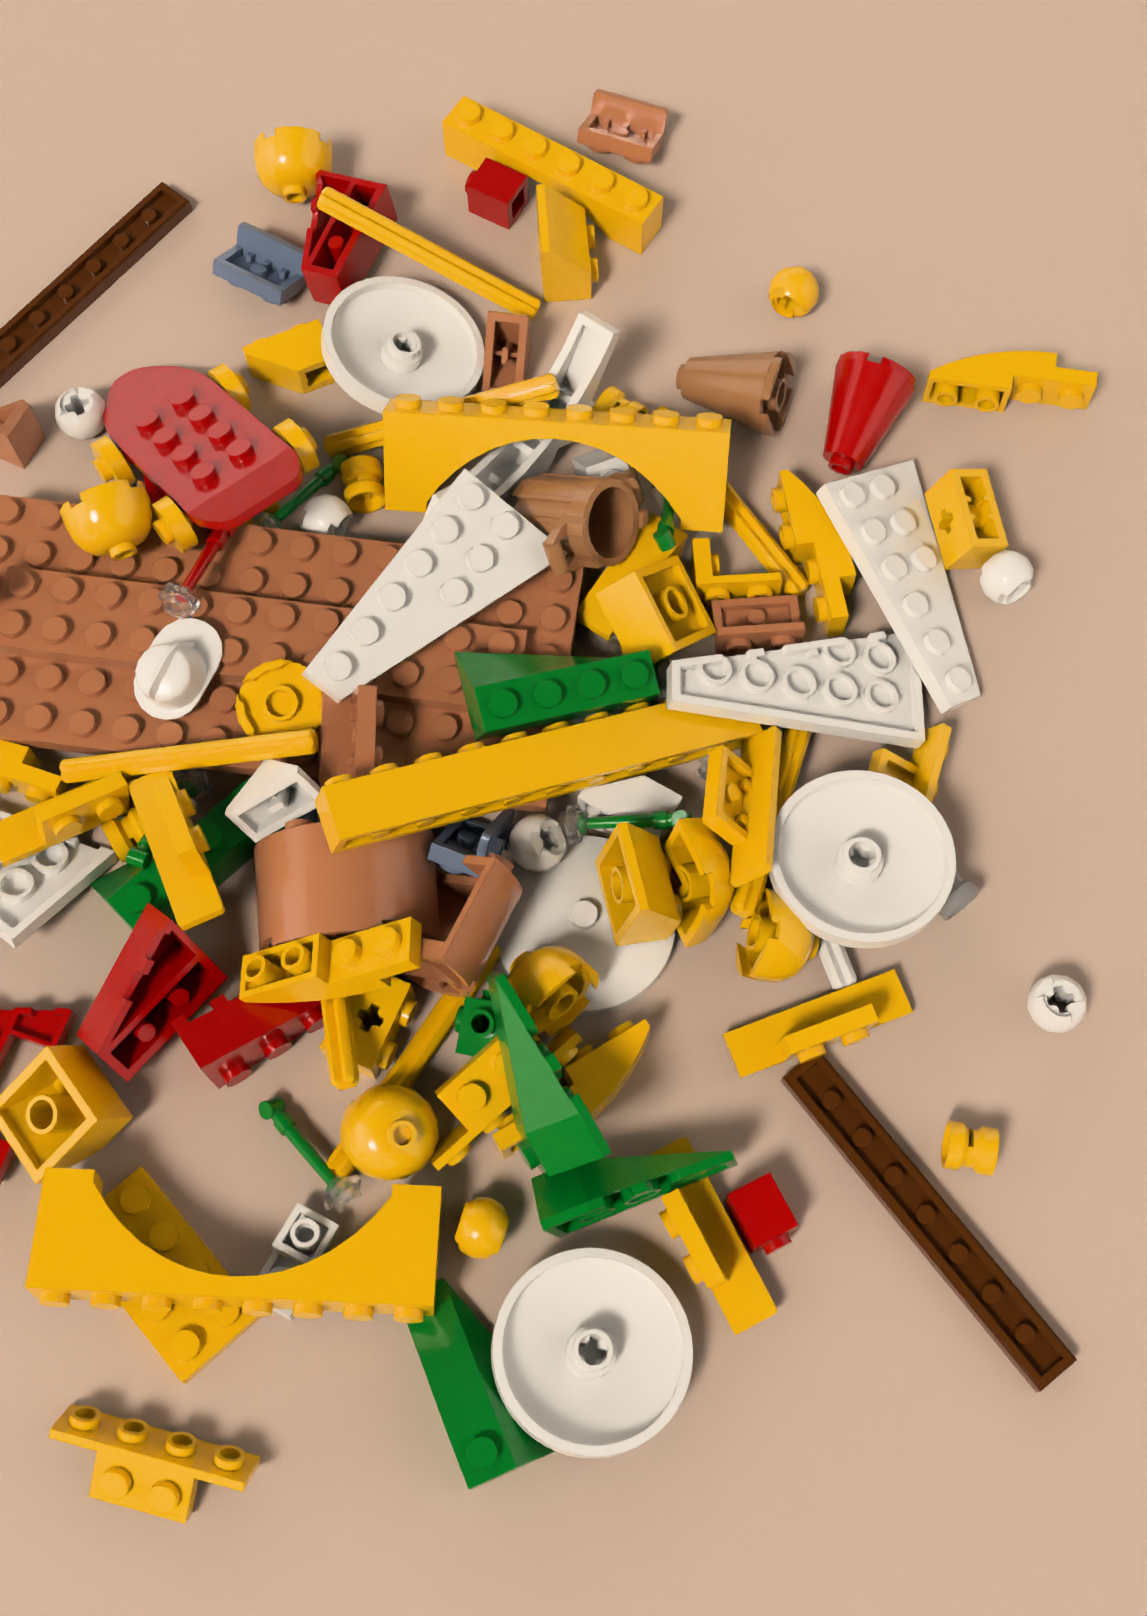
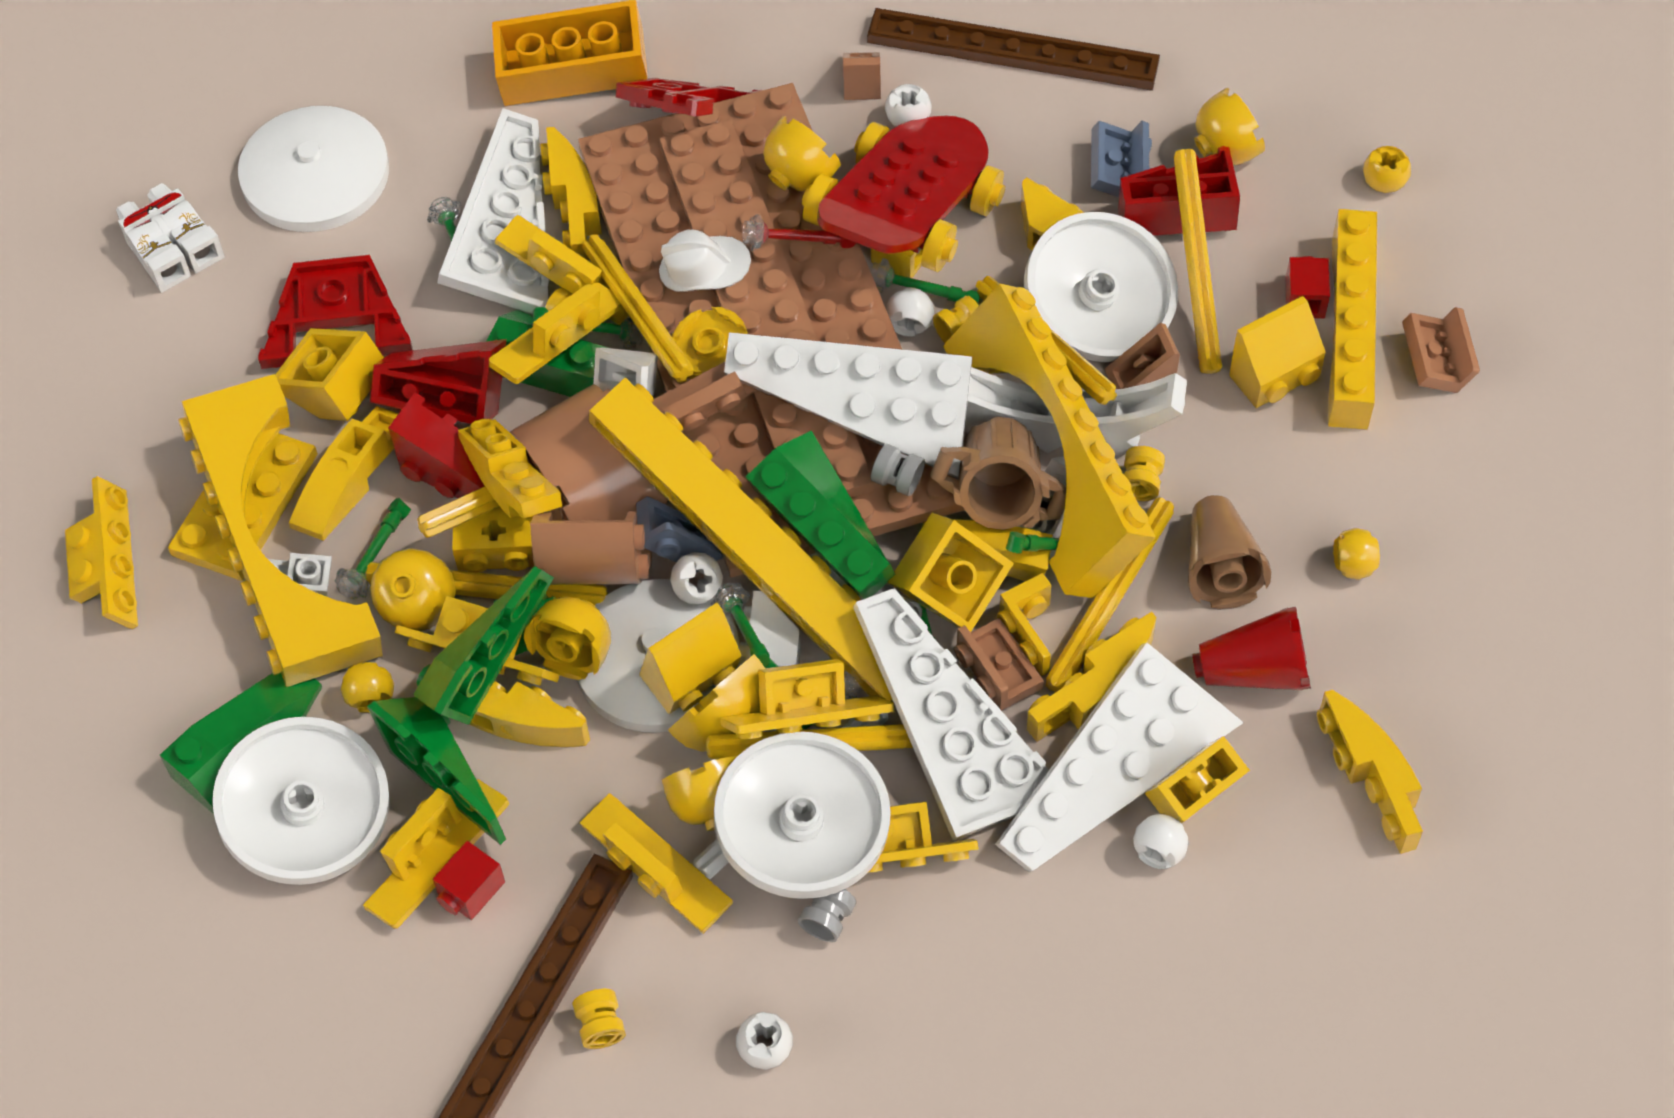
camera: 65 degrees right, 10 degrees down
(201, 1142) = (342, 474): none -> yellow slope
(408, 73) = (1387, 169): none -> yellow piece
(534, 599) = (898, 469): none -> light grey wheel

